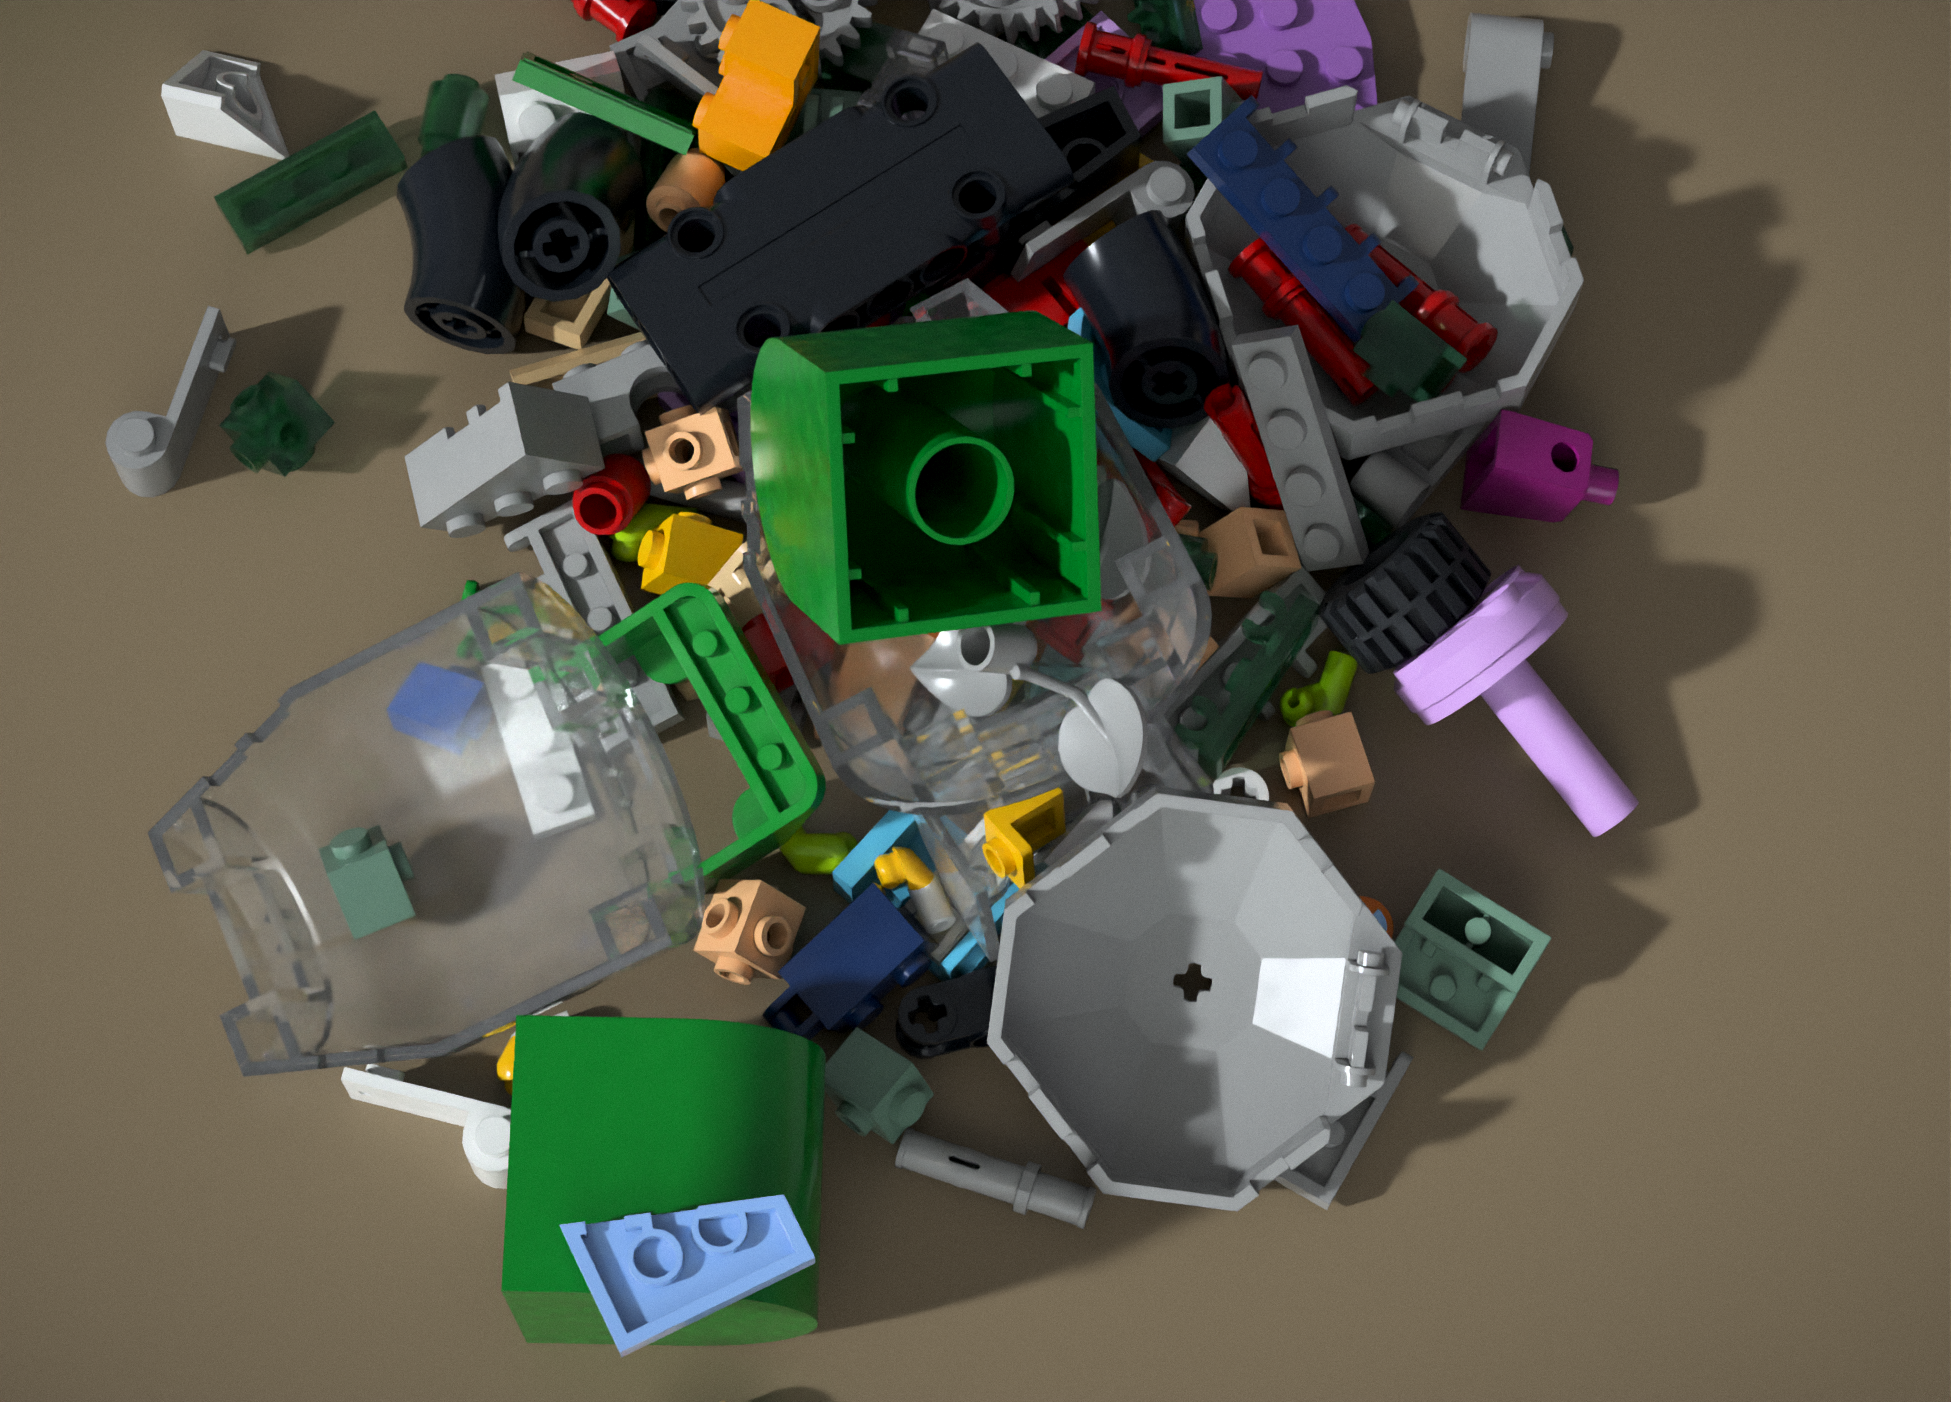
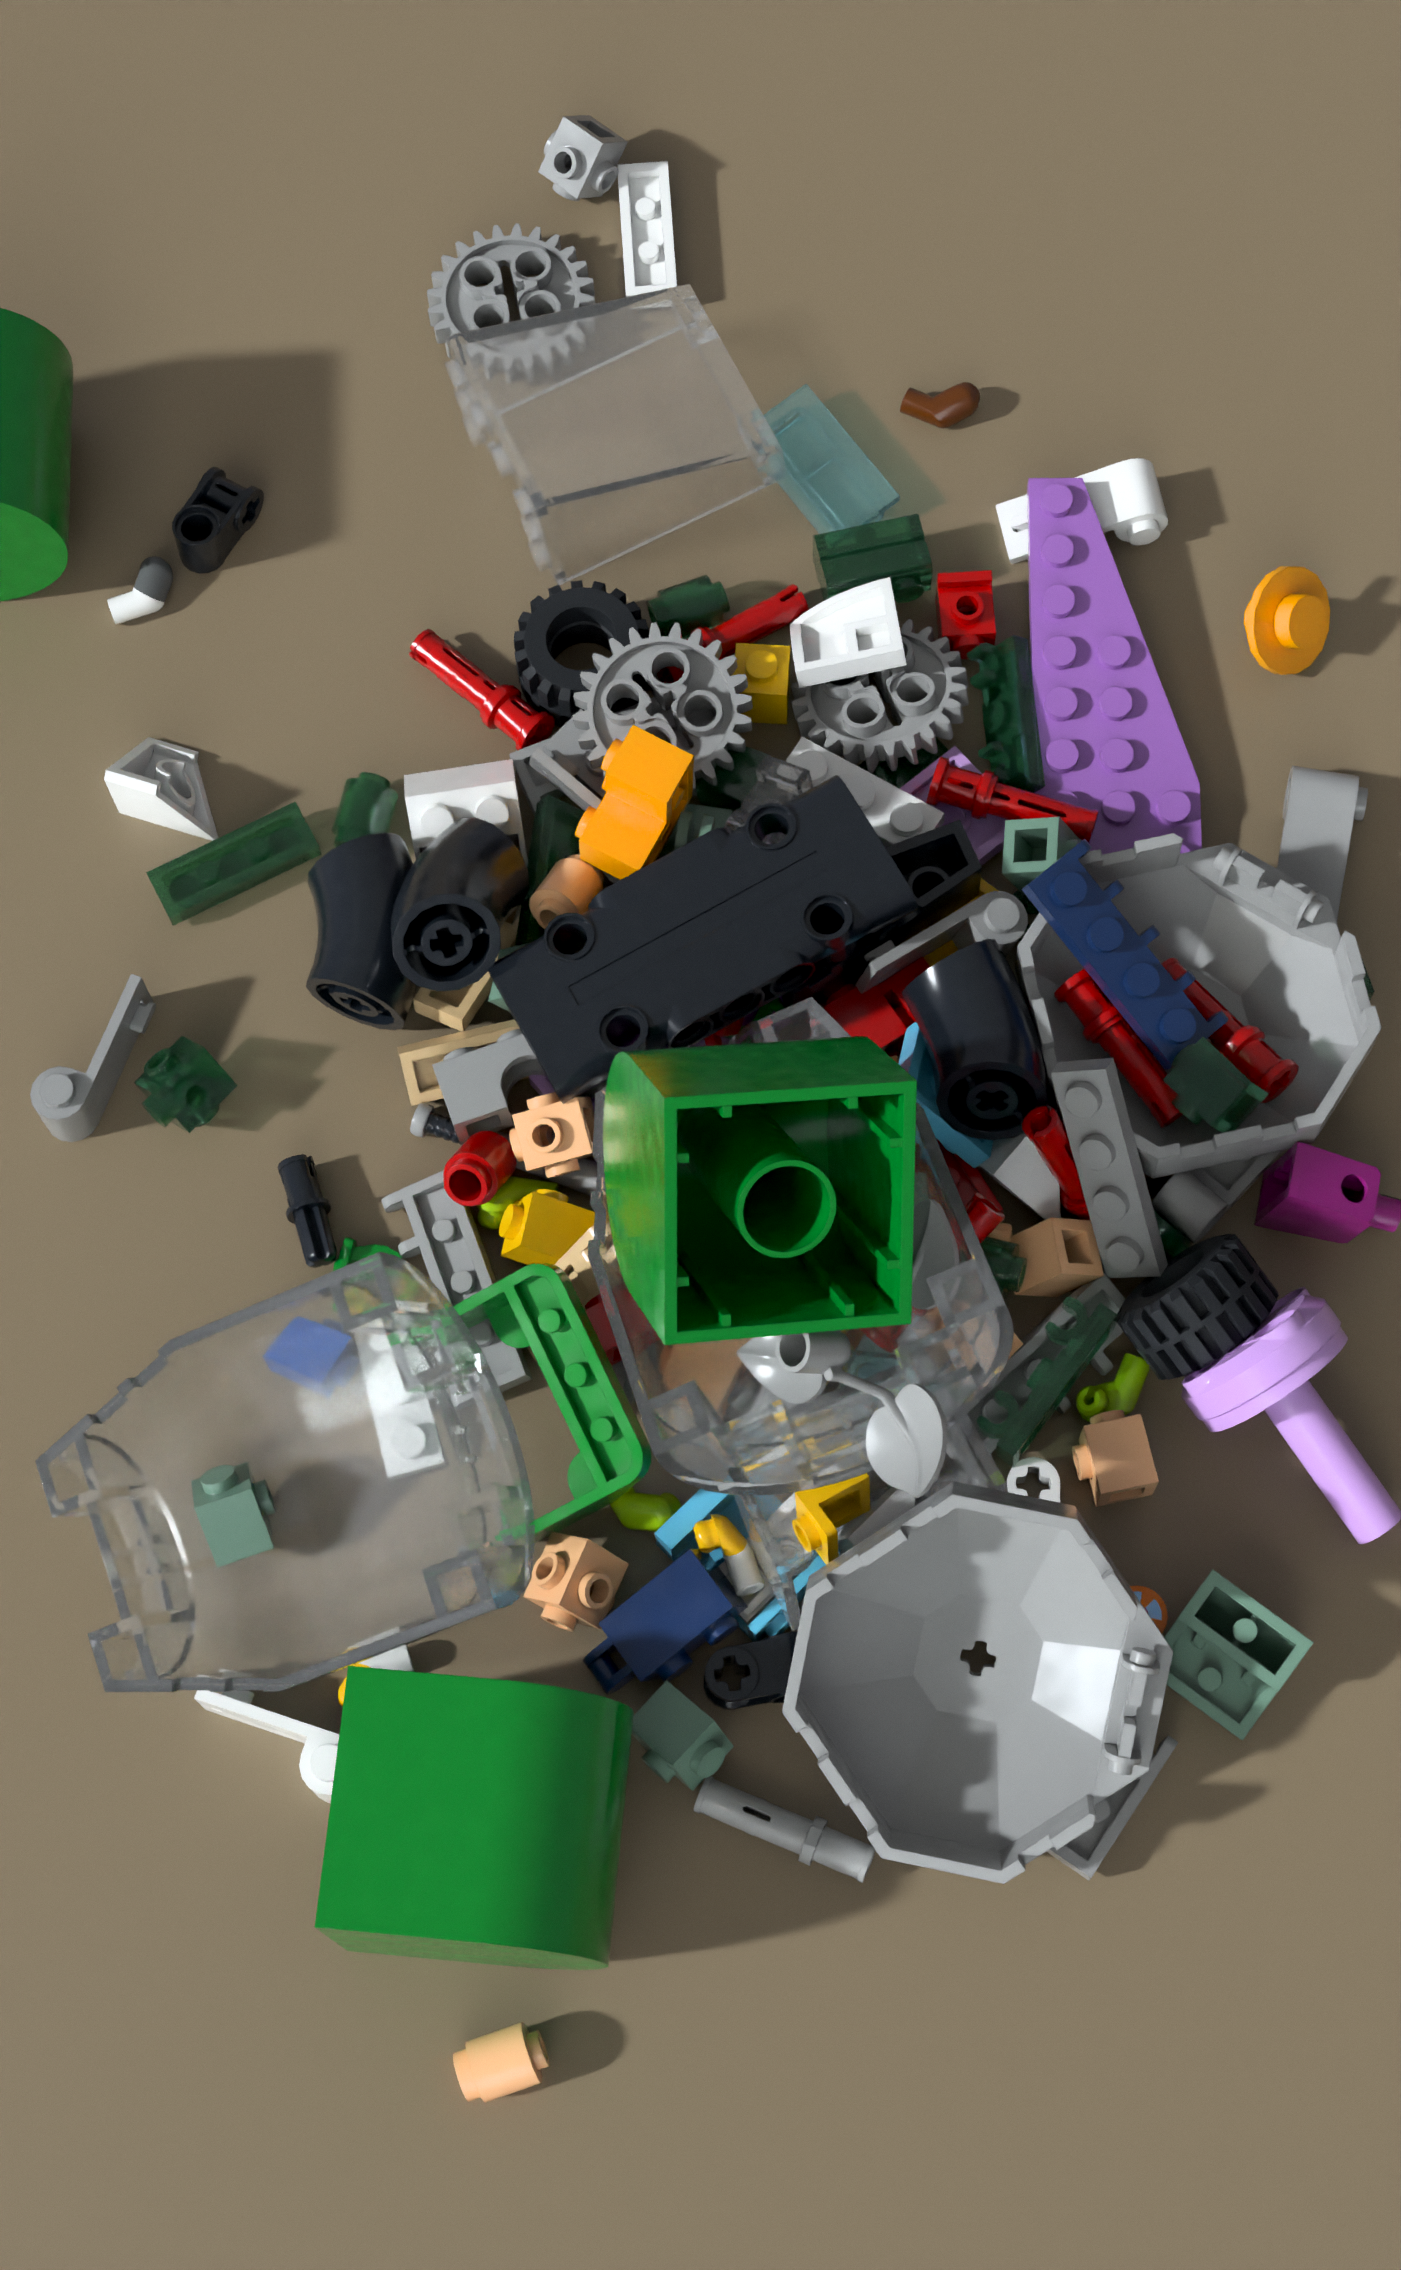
camera: 10 degrees right, 0 degrees up
(422, 555) = (308, 1210): none -> black axle
(504, 459) = (384, 1132): light grey wedge -> none
(604, 102) = (497, 809): green tile -> none
(684, 1265) = (482, 1917): light blue wing -> none

